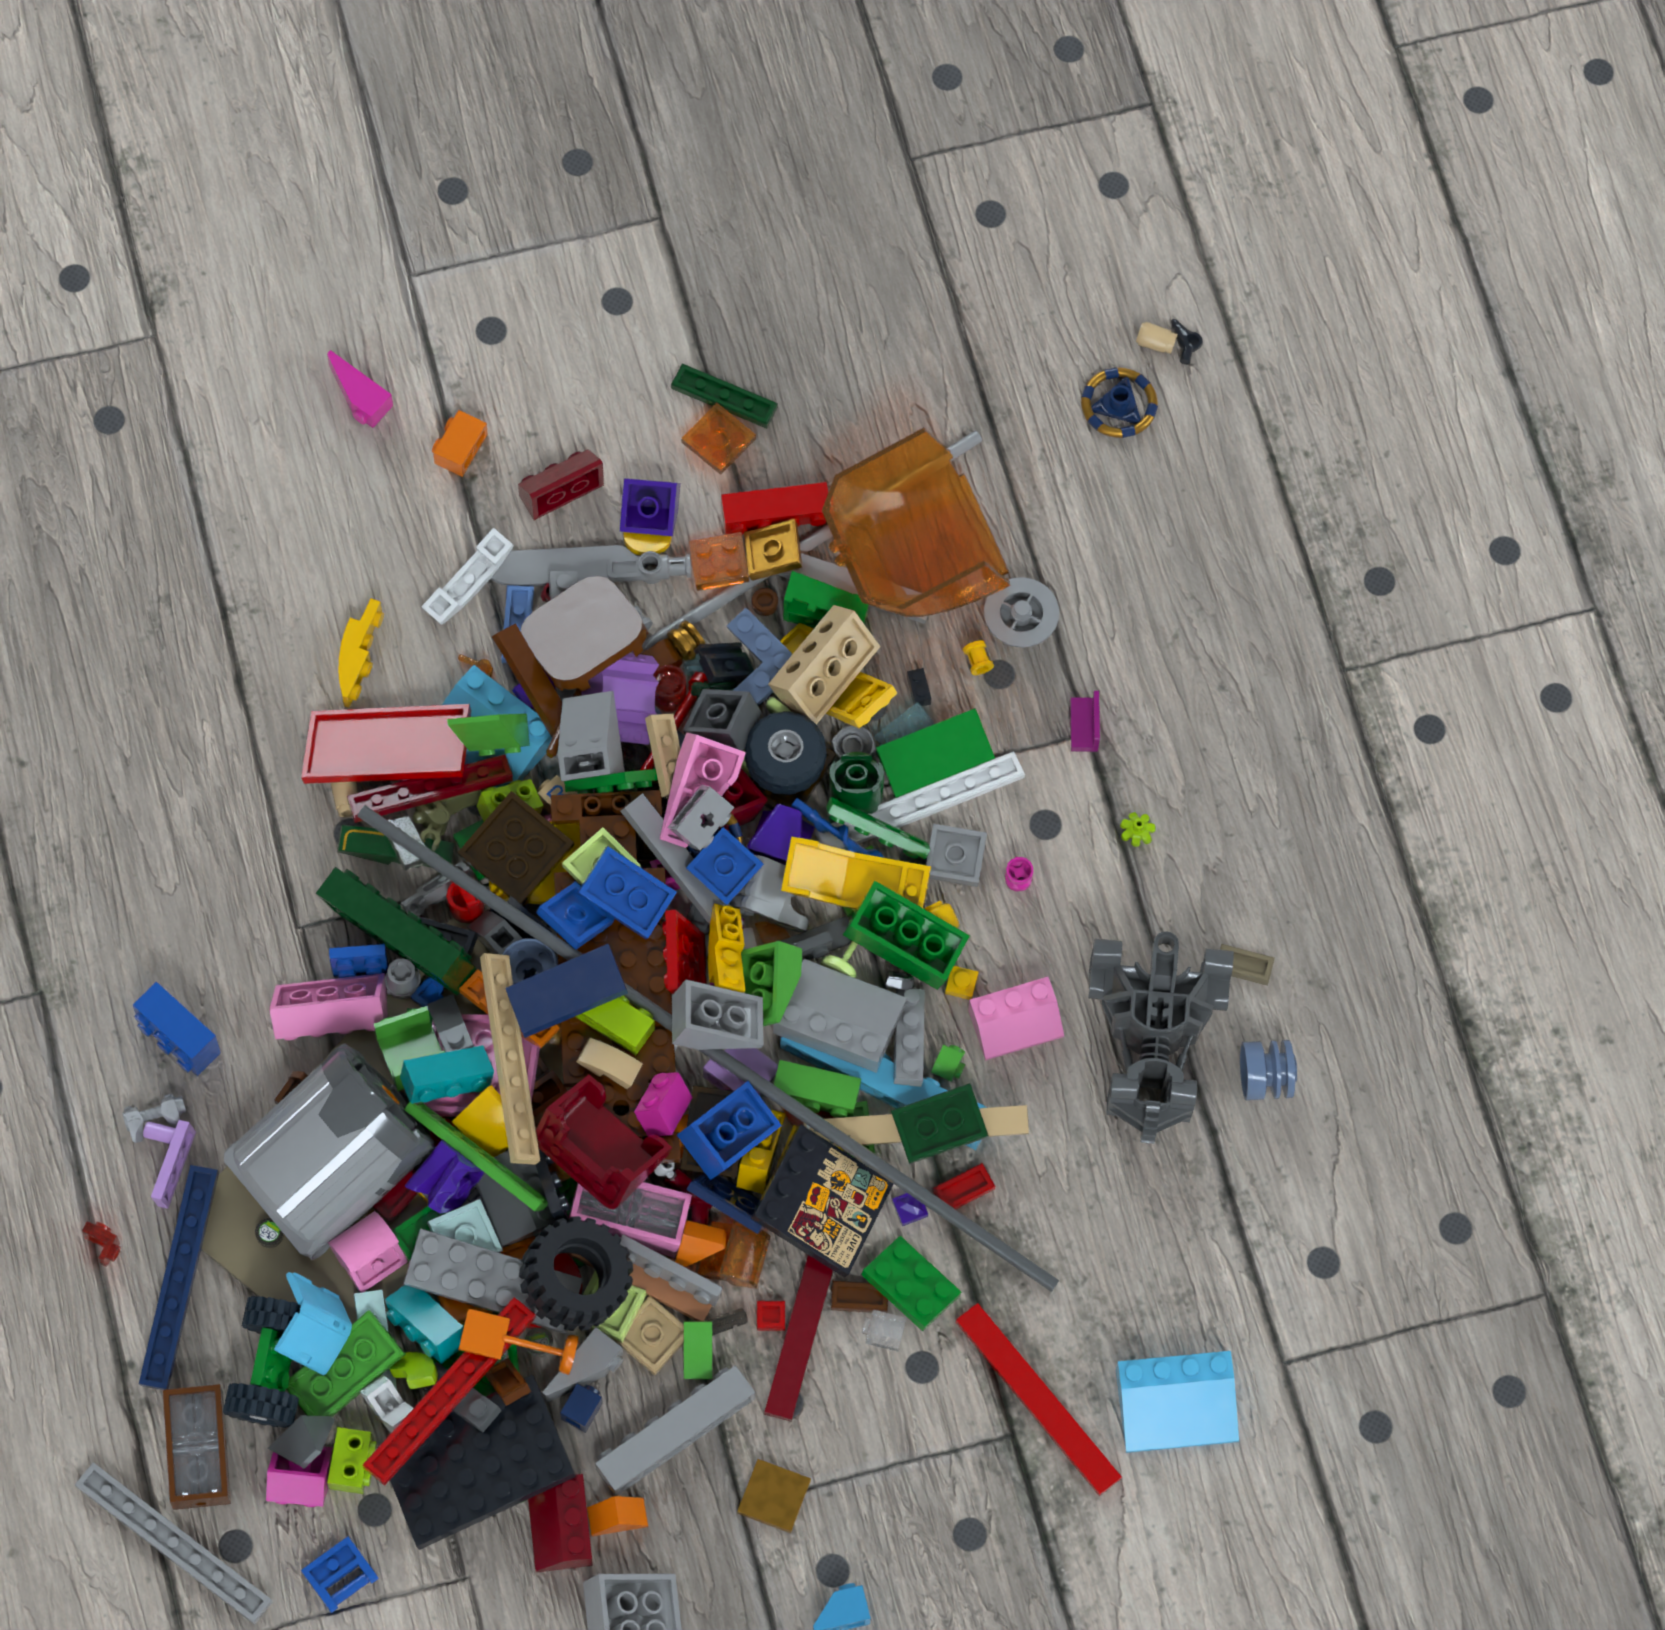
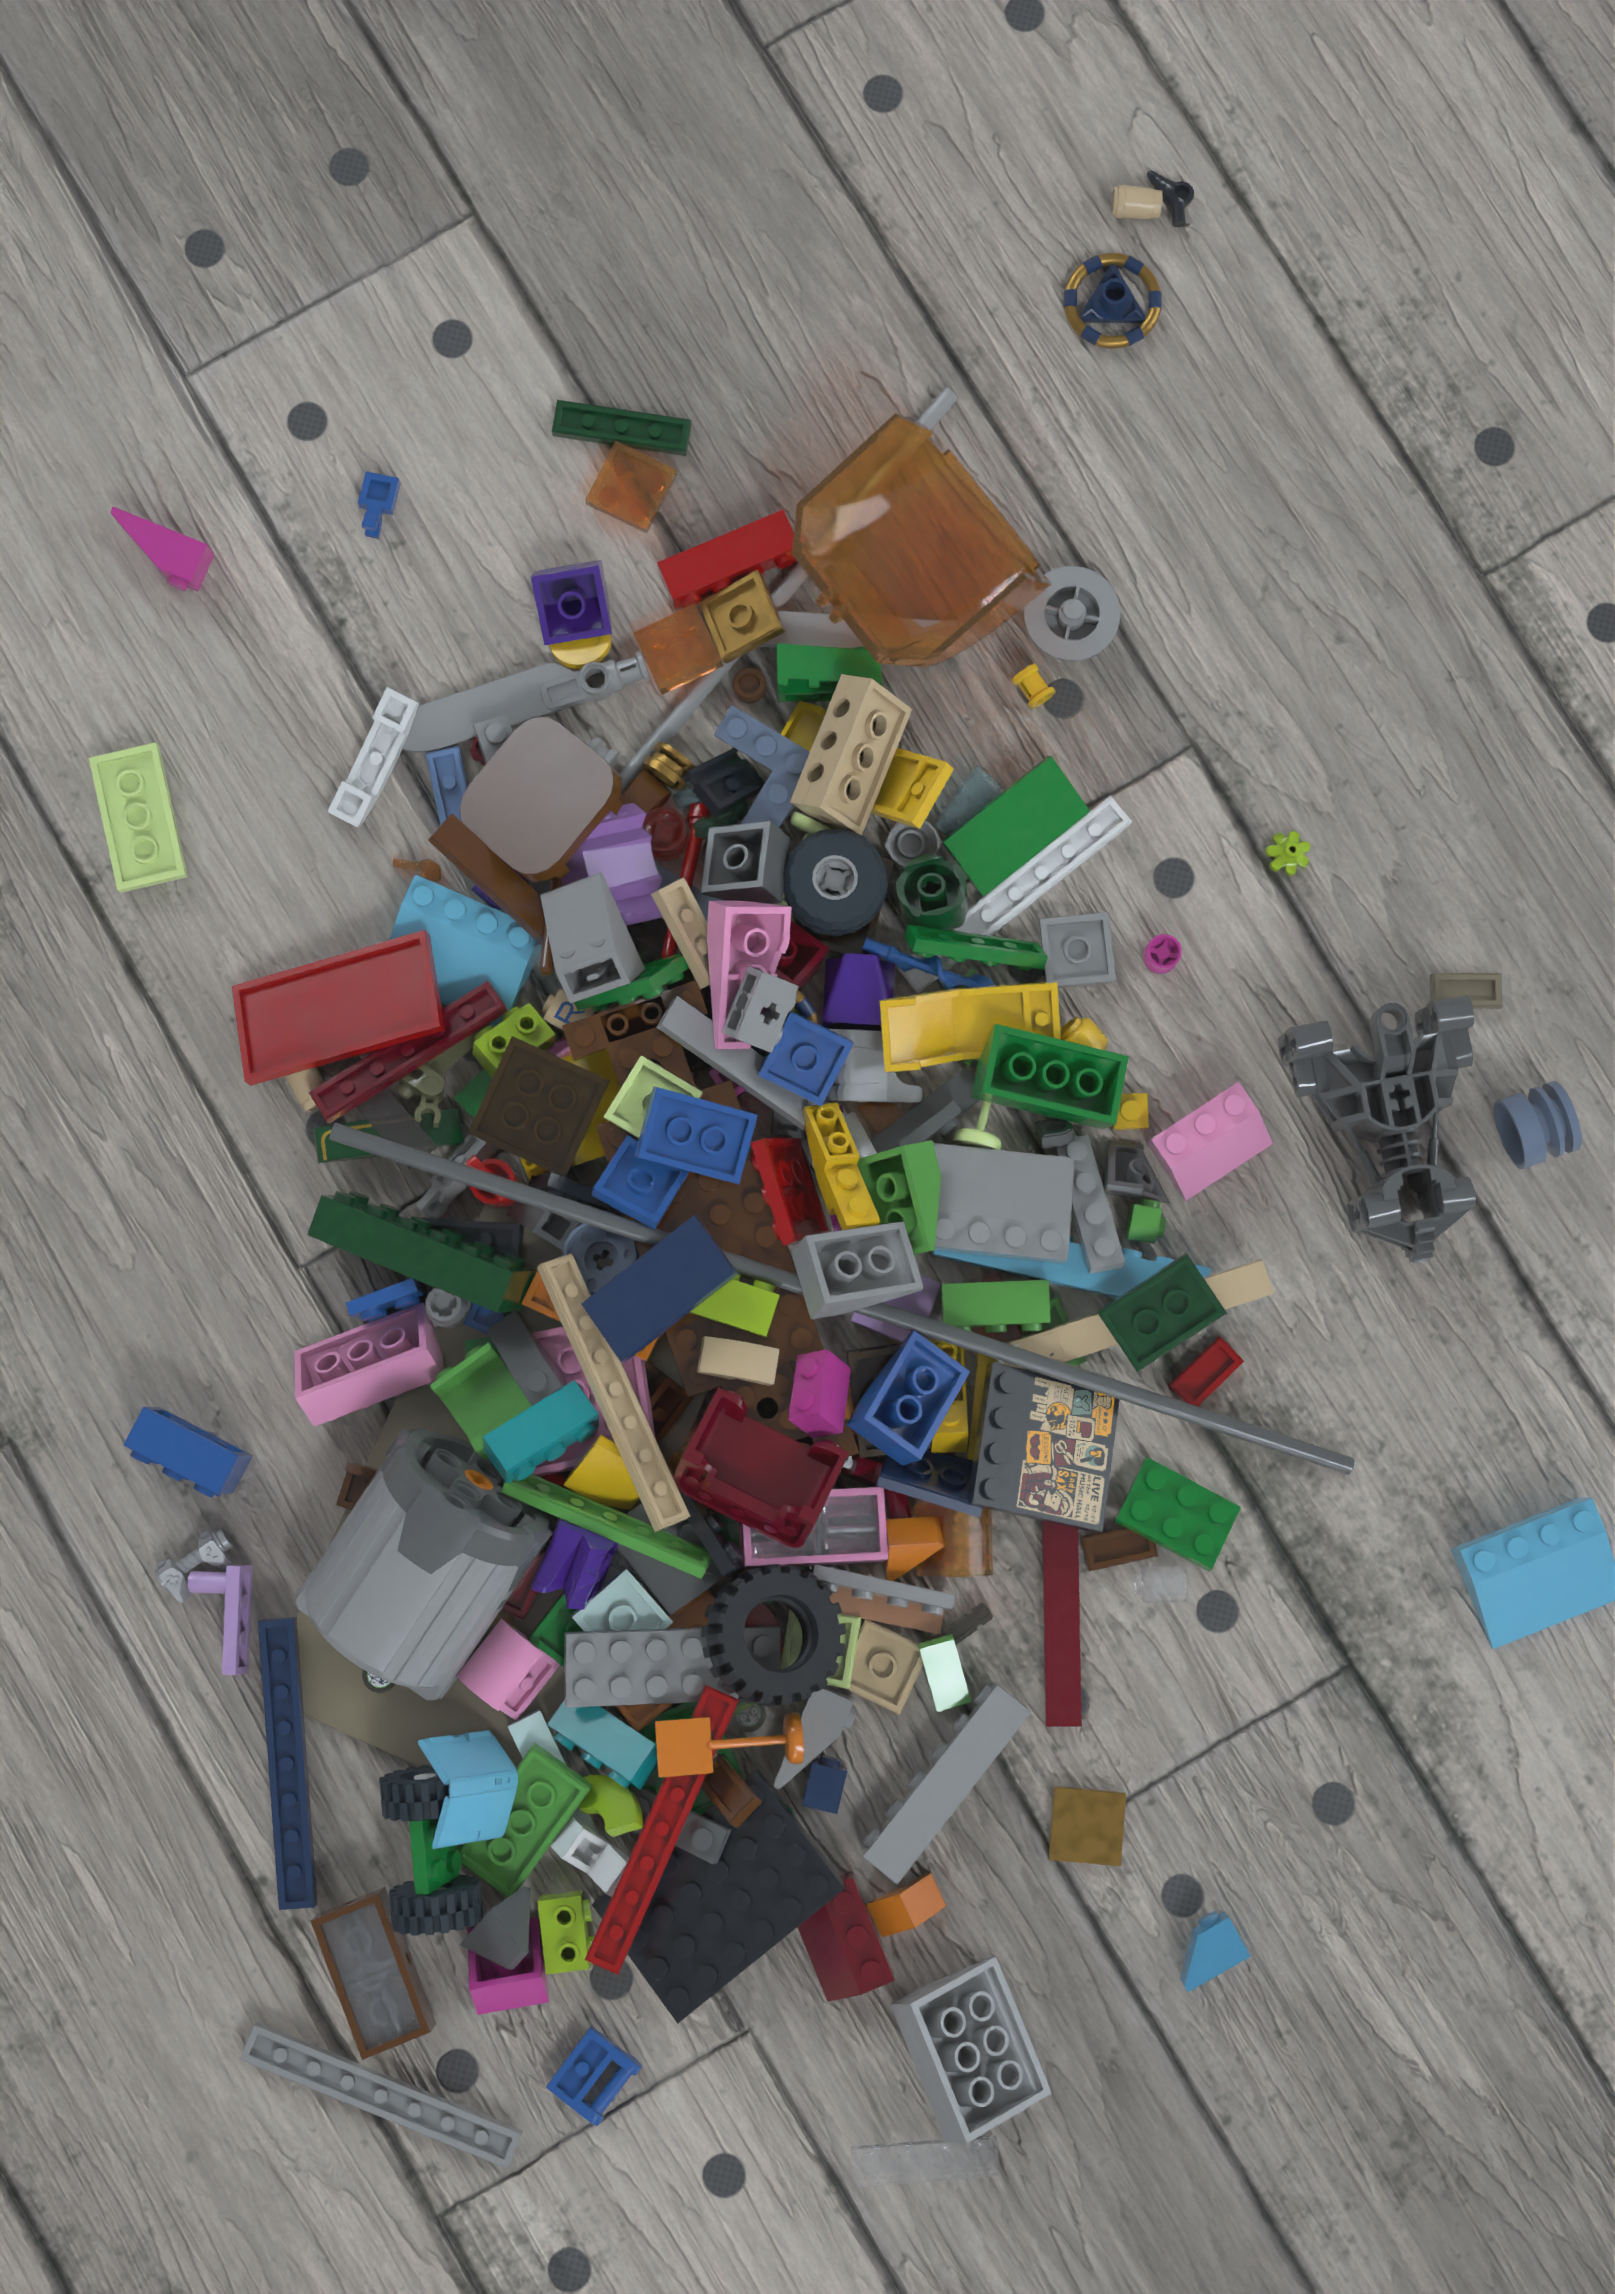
camera: 10 degrees left, 15 degrees up
(102, 1236) = (175, 1734): clear red bracket -> none
(279, 573) = (138, 817): none -> yellowish green plate
(354, 653) = (263, 907): yellow slope -> none
(459, 443) = (311, 582): orange brick -> none
(492, 732) = (464, 960): bright green slope -> none
(526, 396) = (377, 497): none -> blue plate
(561, 483) = (453, 601): dark red slope -> none
(770, 1315) = (1018, 1600): red tile -> none
(909, 1209) = (1146, 1421): dark purple tile -> none
(919, 687) = (971, 745): black piece -> none
(948, 1027) = (1130, 1173): none -> dark grey slope
(1038, 1399) = (1370, 1614): red tile -> none
(1085, 723) = (1188, 734): magenta panel -> none

